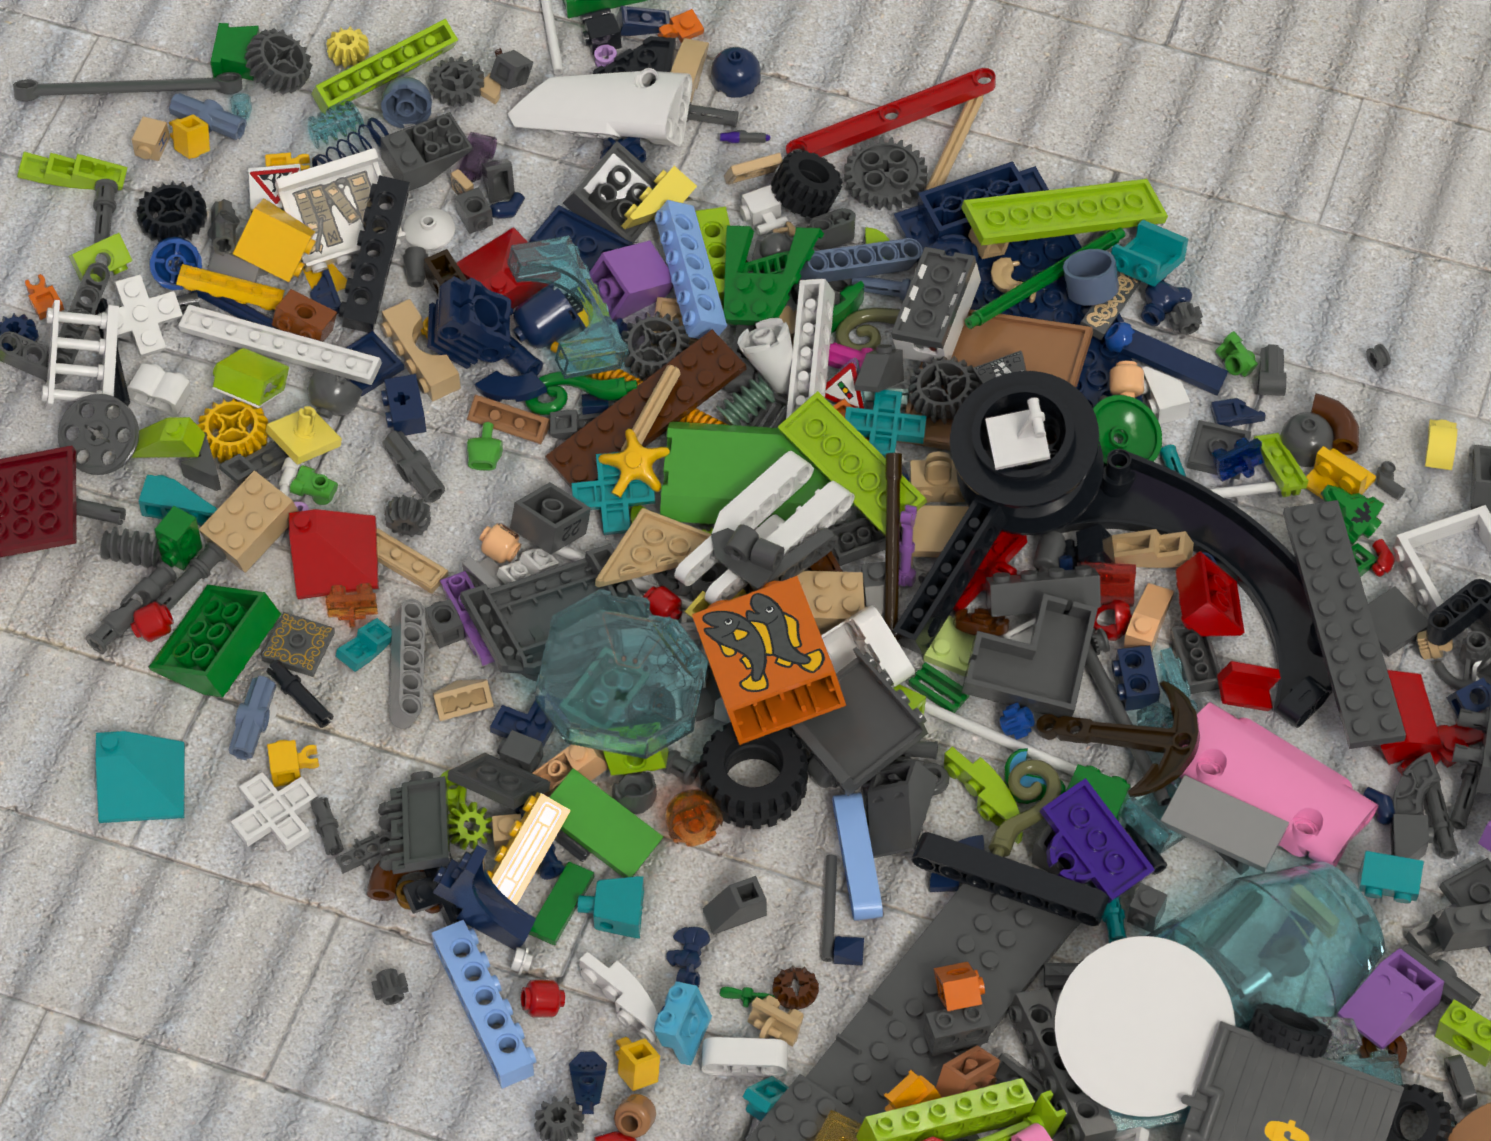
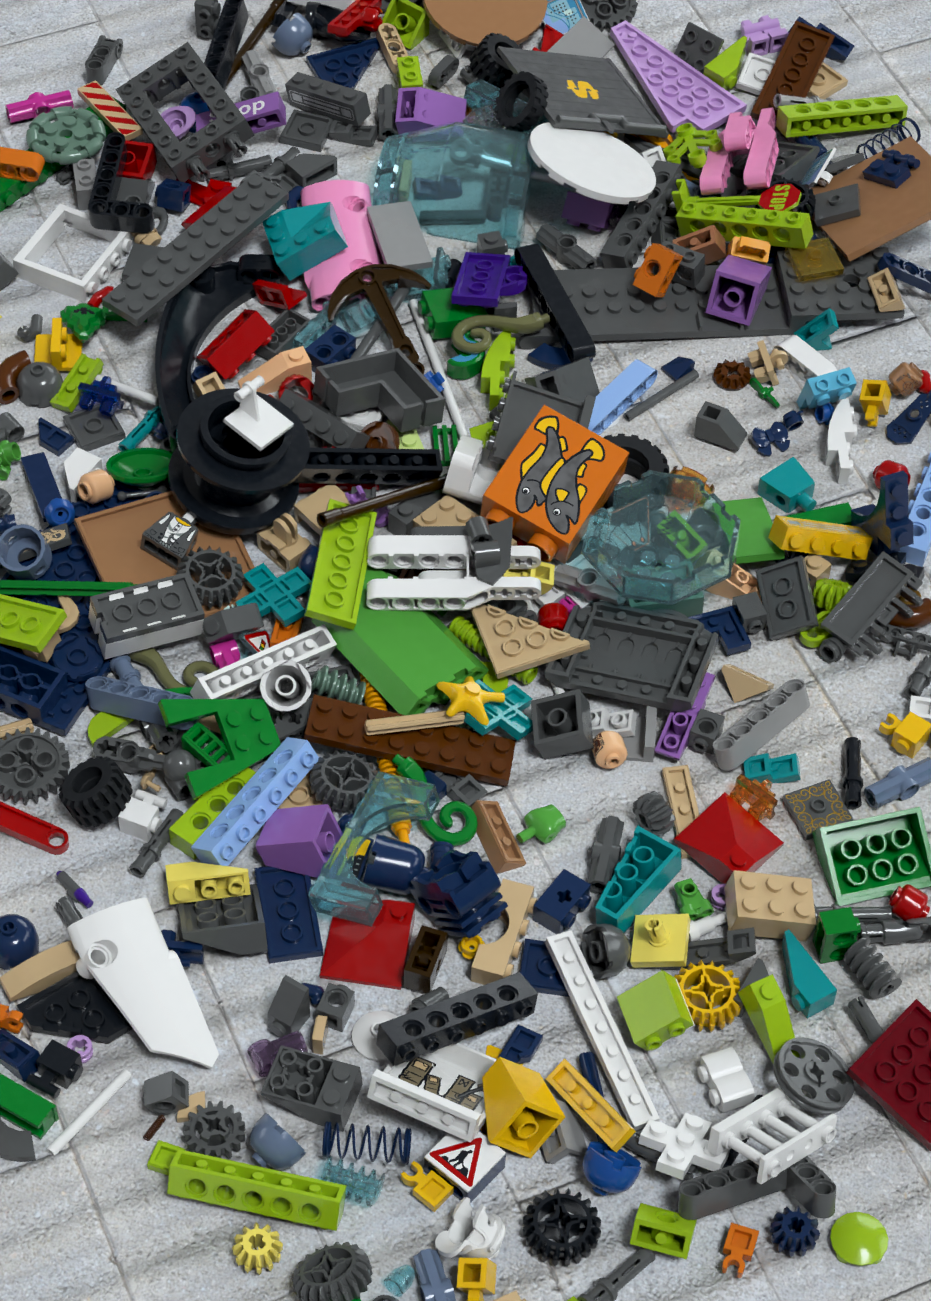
camera: 135 degrees left, 5 degrees down
(219, 152) = (471, 1236): none -> white helmet
(223, 227) = (542, 1158): dark grey piece -> none
(304, 317) = (562, 1029): dark orange brick -> none
(368, 466) = (638, 879): none -> teal wedge
(471, 49) = (162, 1157): none -> lime tile
(504, 387) = (469, 838): dark blue tile -> none
(726, 198) = (152, 850): none -> dark grey pin
(753, 168) = (111, 839): tan tile -> none
(876, 1054) = (738, 289): none -> medium lavender slope
(1294, 740) = (304, 237): none -> teal slope
(1390, 877) = (357, 142): teal slope -> none

